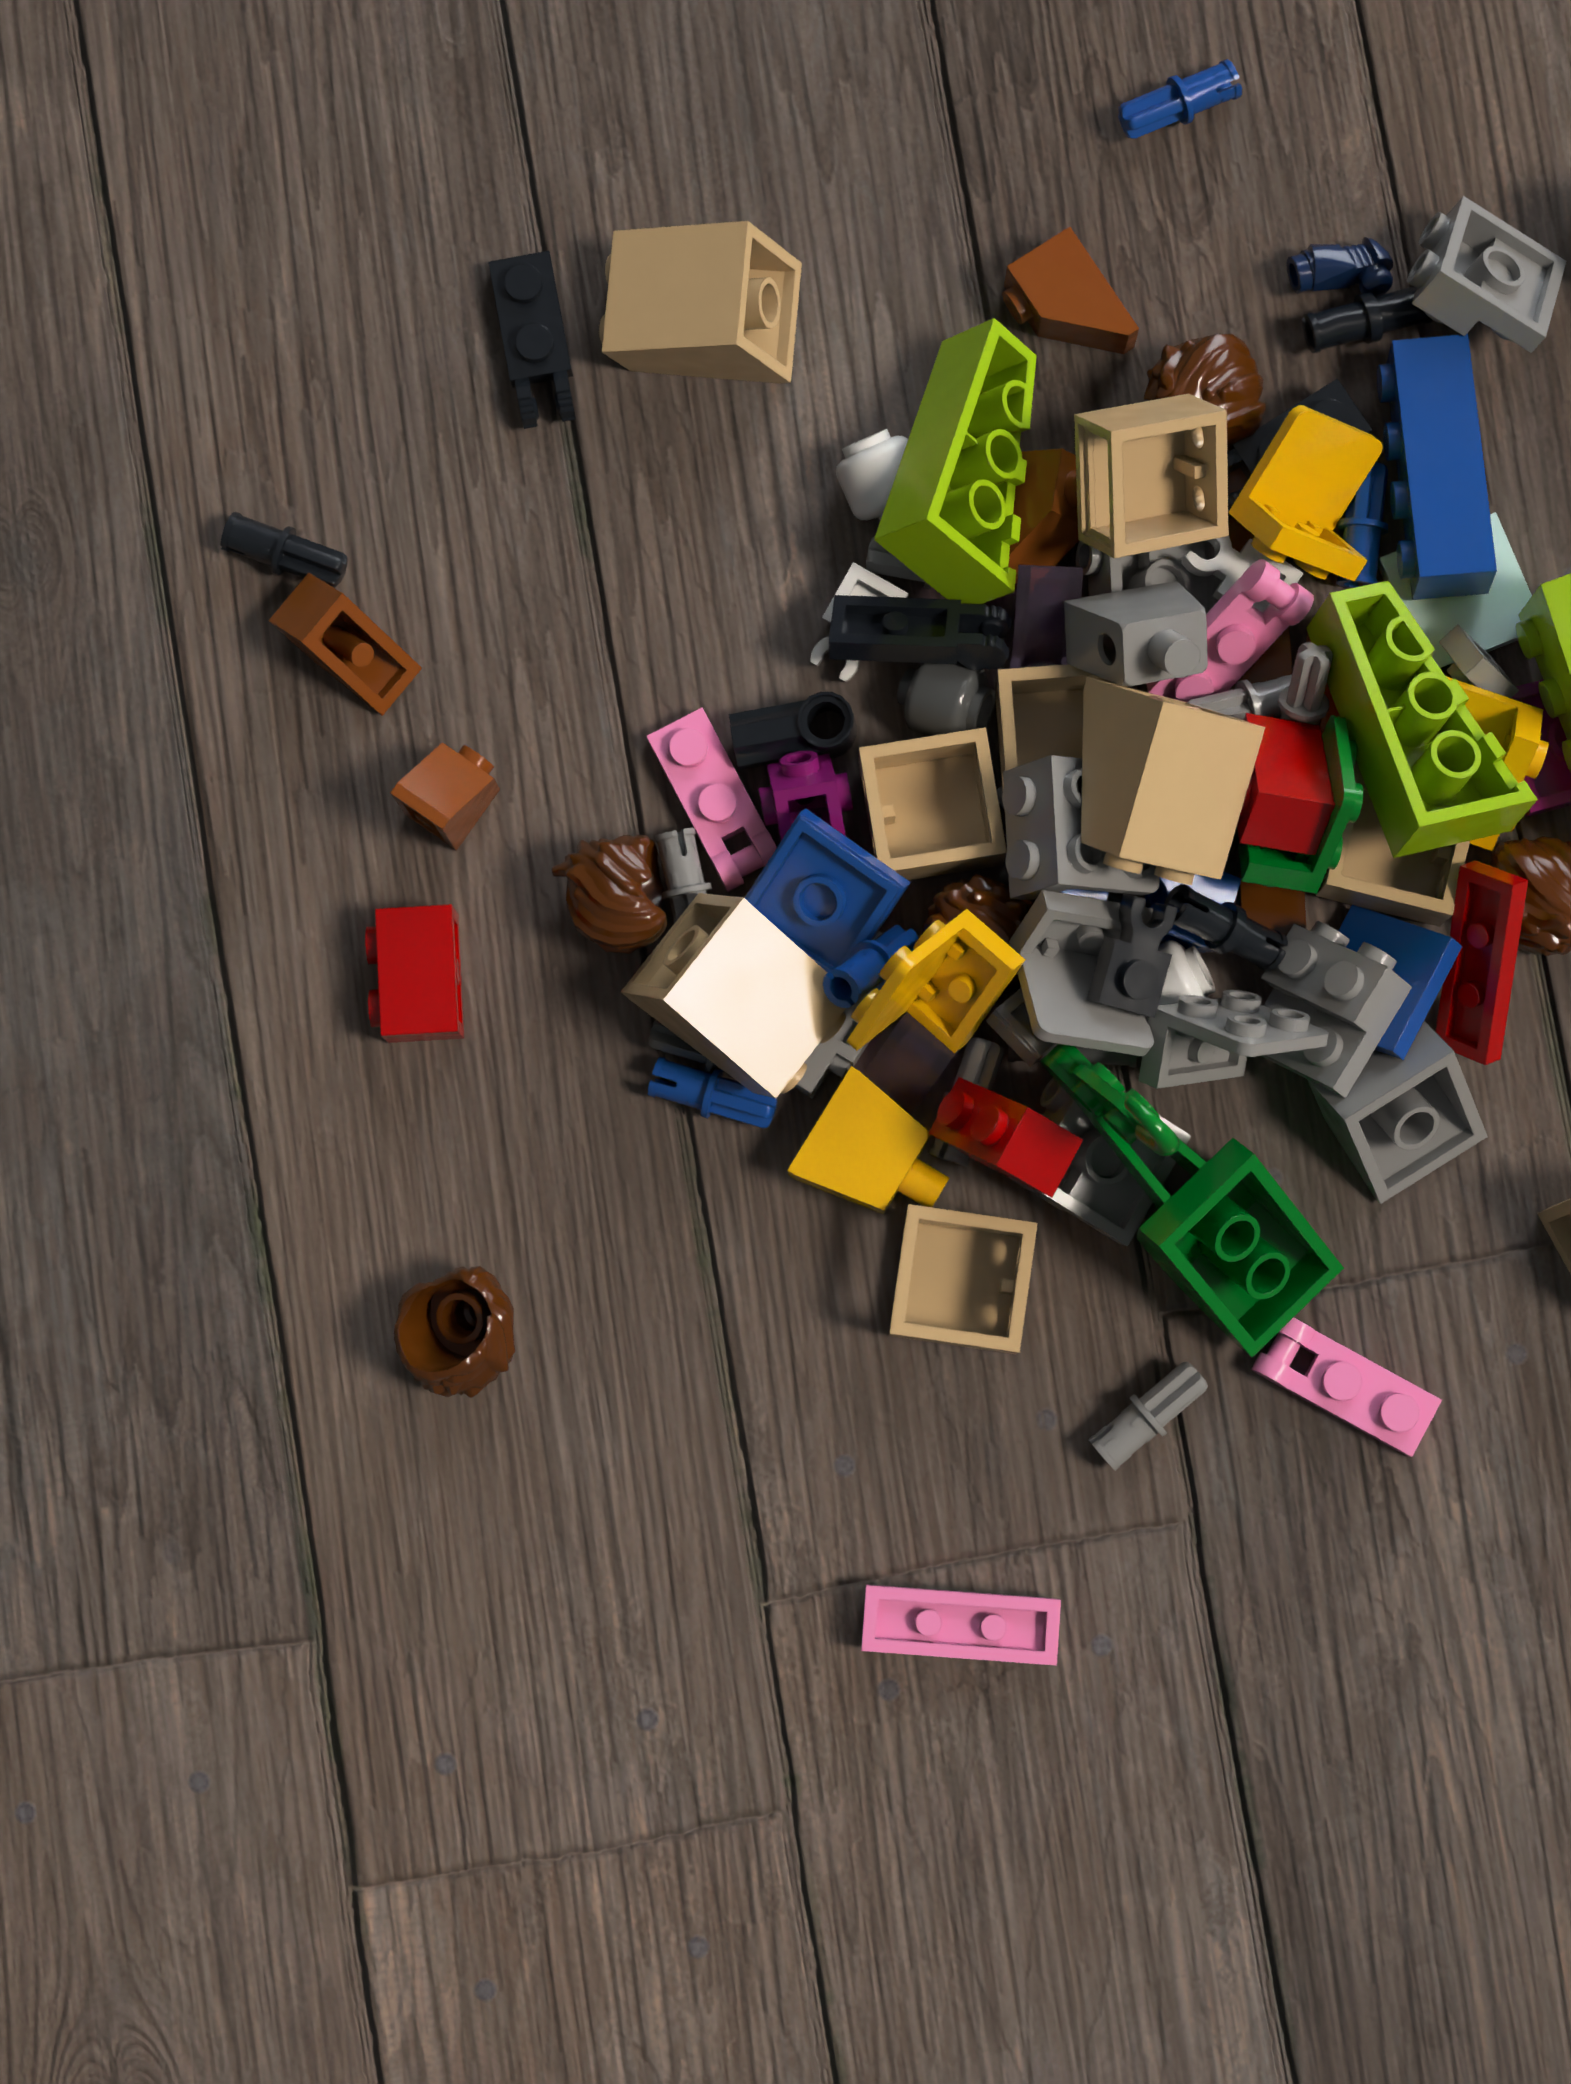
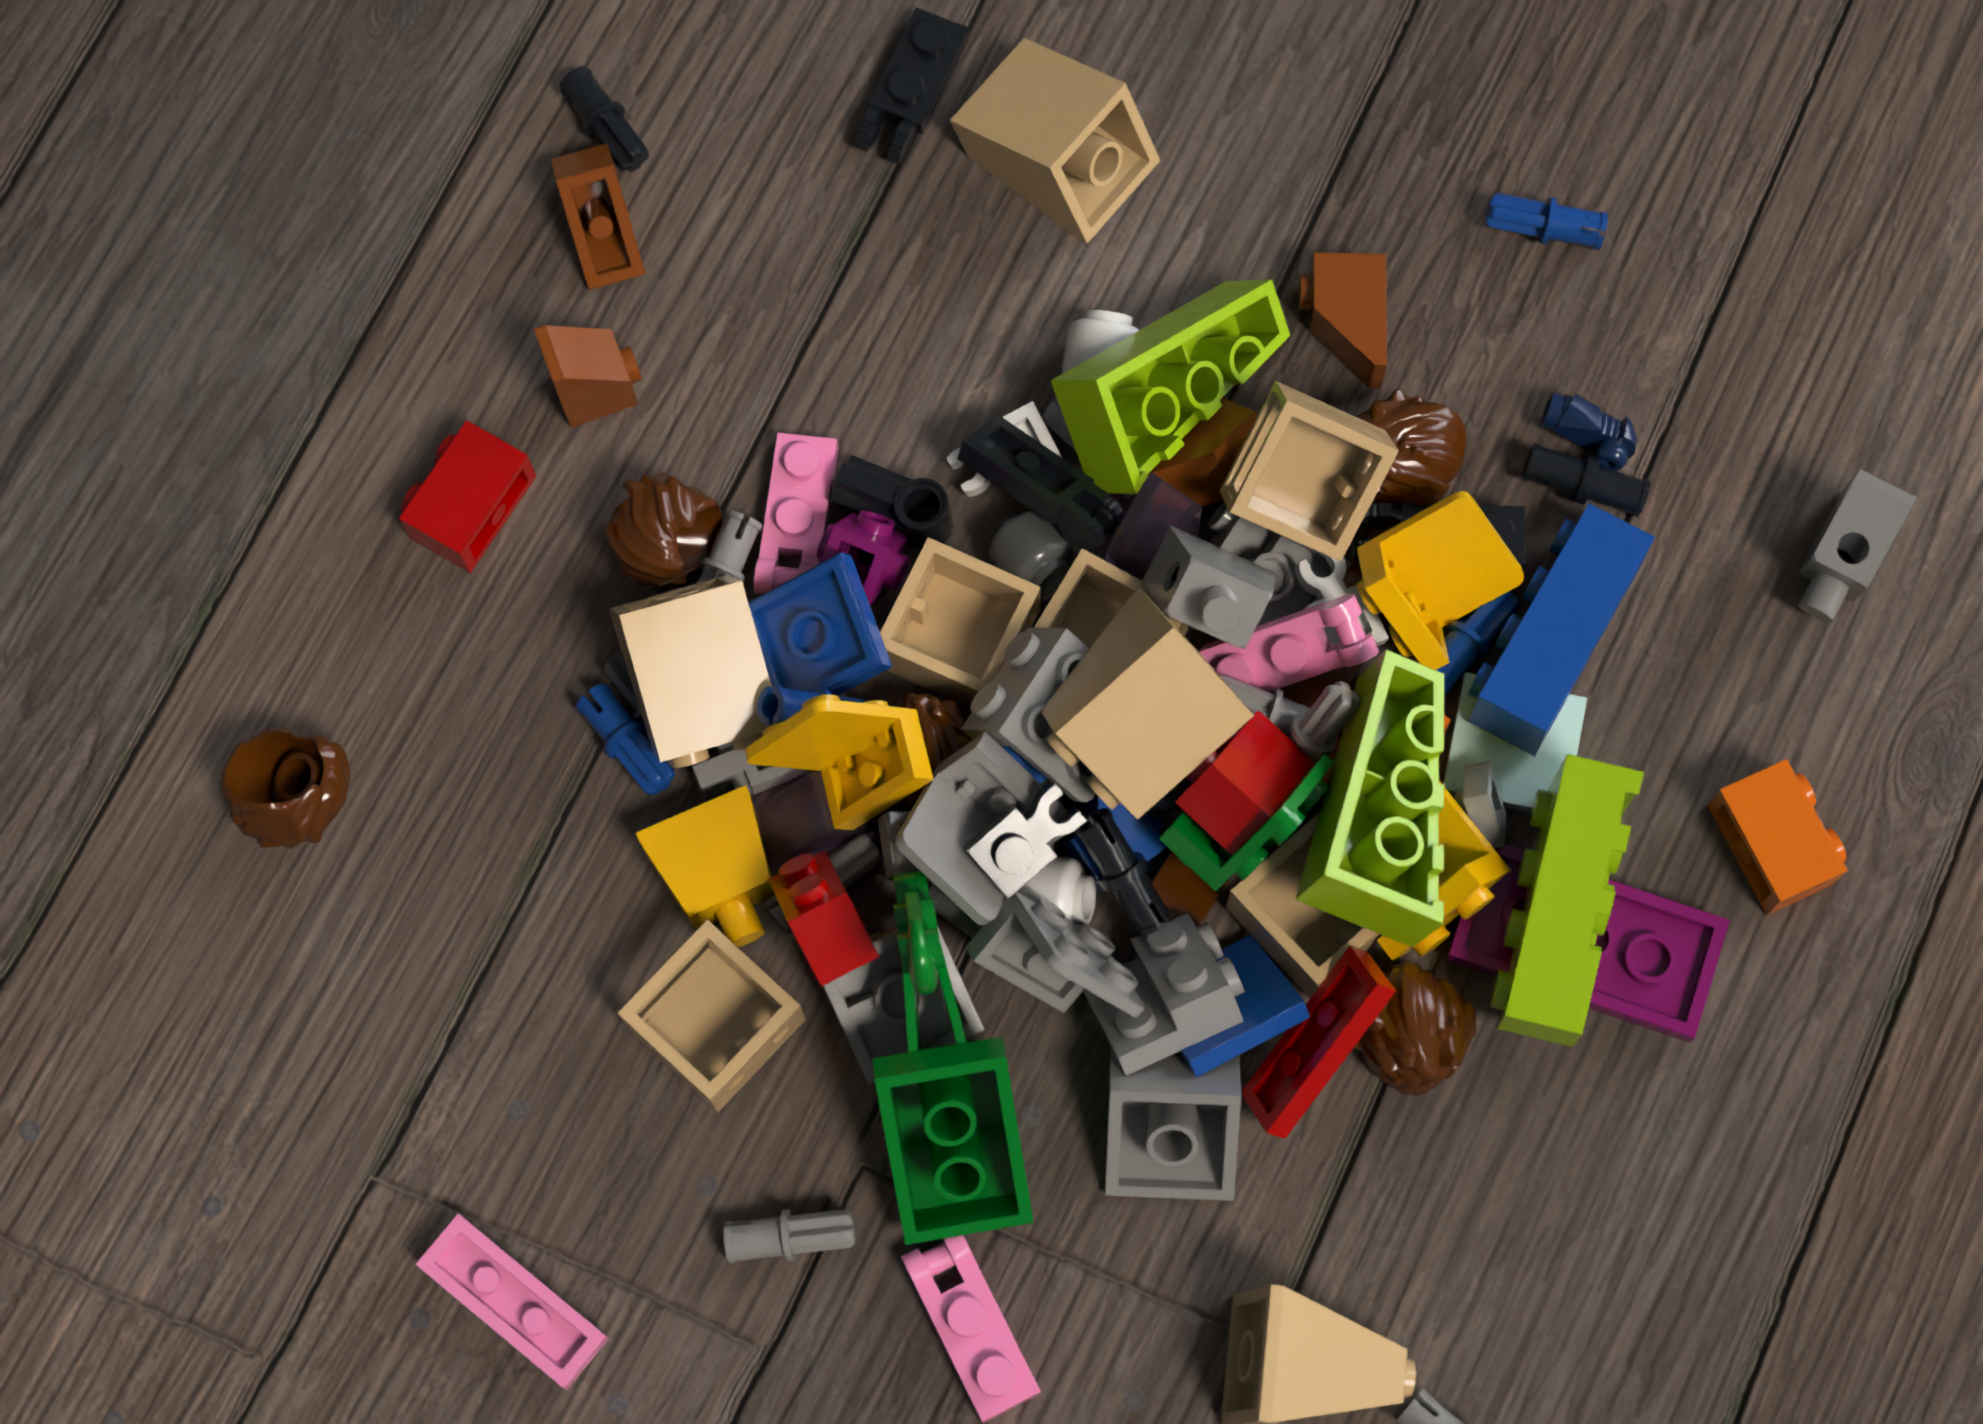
camera: 30 degrees right, 10 degrees down
(1486, 274) = (1704, 501): light grey plate -> none

